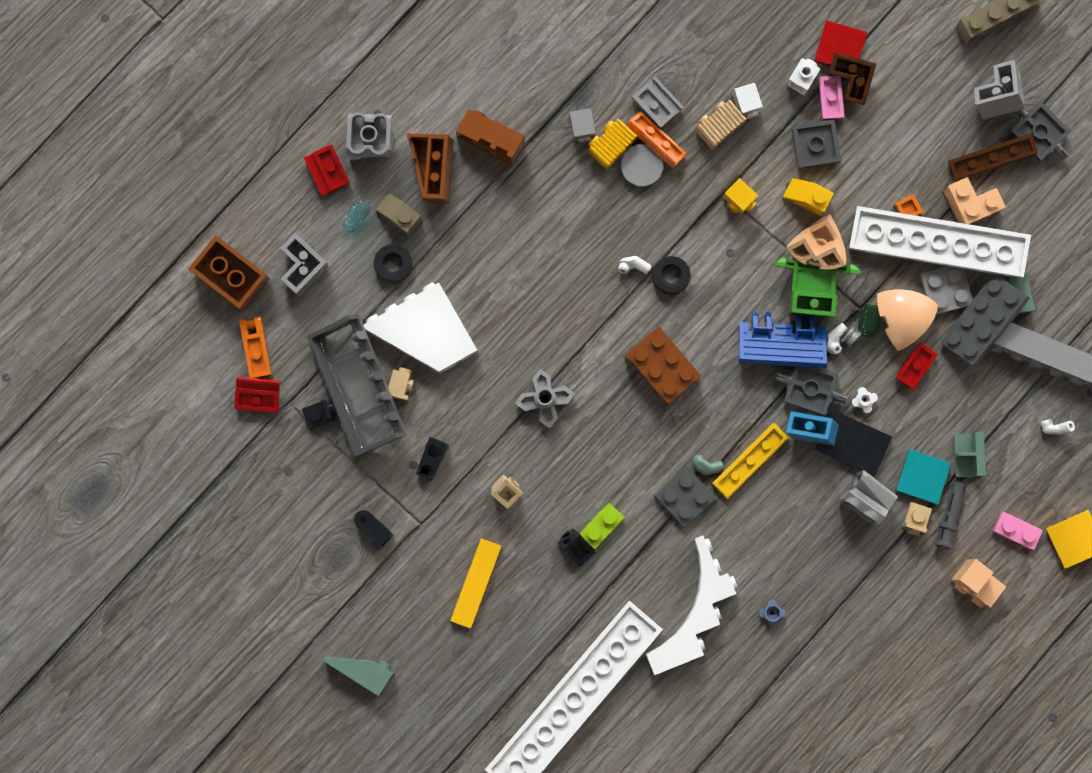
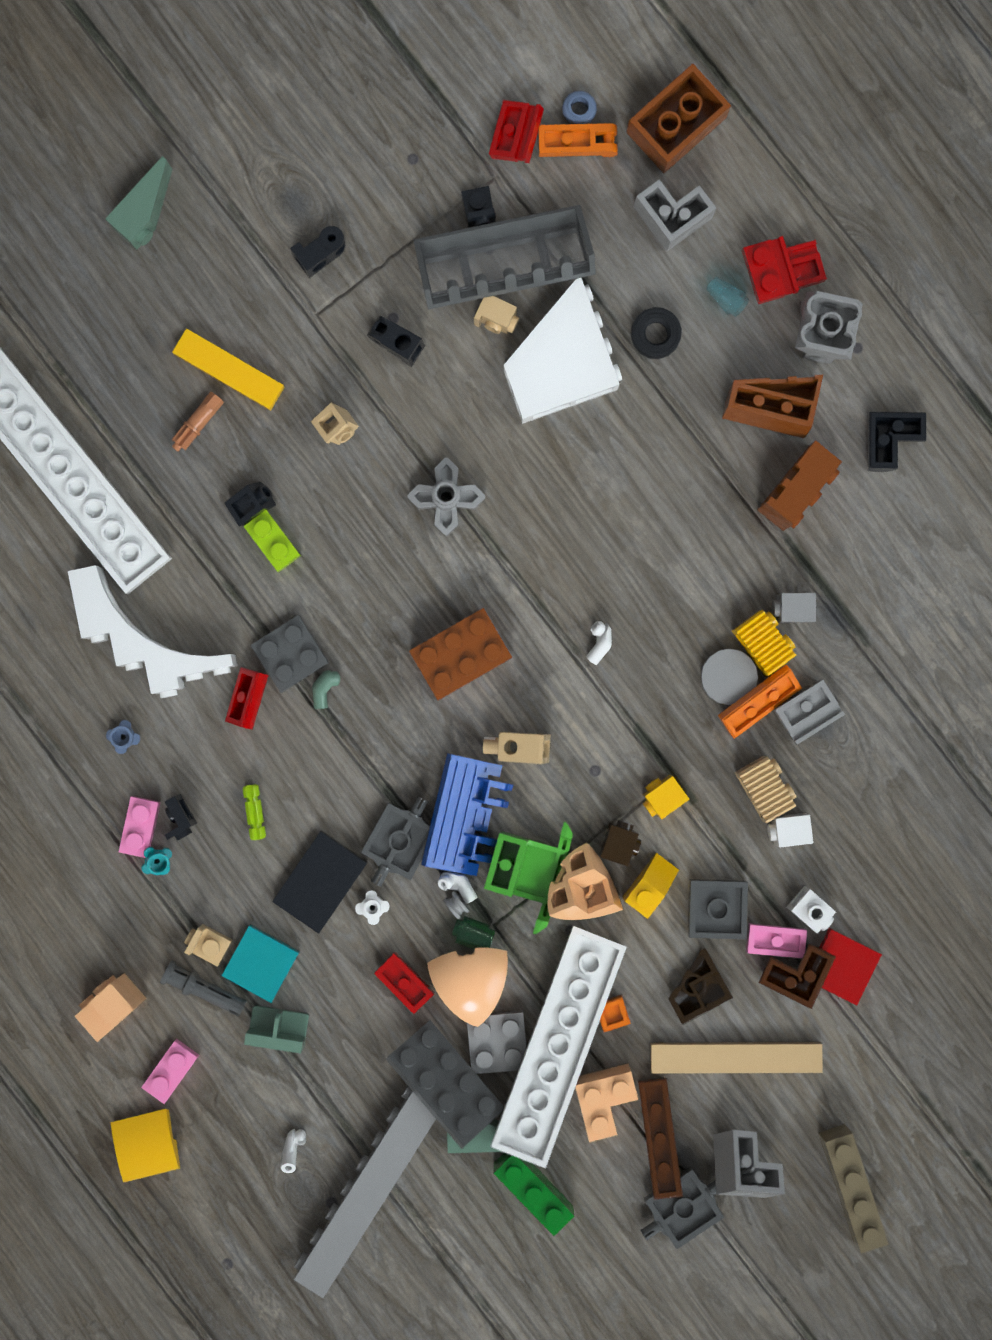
camera: 105 degrees right, 5 degrees up
(223, 344) = (575, 97): none -> sand blue piece
(332, 186) = (770, 270): none -> red plate
(399, 214) = (718, 351): dark tan slope -> none
(437, 80) = (885, 432): none -> black brick
(520, 599) = (197, 422): none -> nougat piece
(671, 288) = (595, 694): black tyre -> none
(724, 300) = (530, 747): none -> tan torso
(725, 522) = (246, 698): none -> red brick
(750, 460) = (321, 745): yellow tile -> none
(781, 224) = (620, 843): none -> dark brown brick
(810, 502) = (254, 812): none -> lime axle
(812, 428) = (344, 831): dark azure brick -> none
(821, 558) = (179, 812): none -> black bracket
(838, 588) = (139, 826): none -> bright pink plate
(863, 564) = (159, 868): none -> teal plate
(868, 498) = (240, 887): light grey piece -> none
(878, 147) = (699, 990): none -> dark brown slope
(922, 113) = (736, 1057): none -> tan tile
(1050, 242) = (534, 1191): none -> green brick

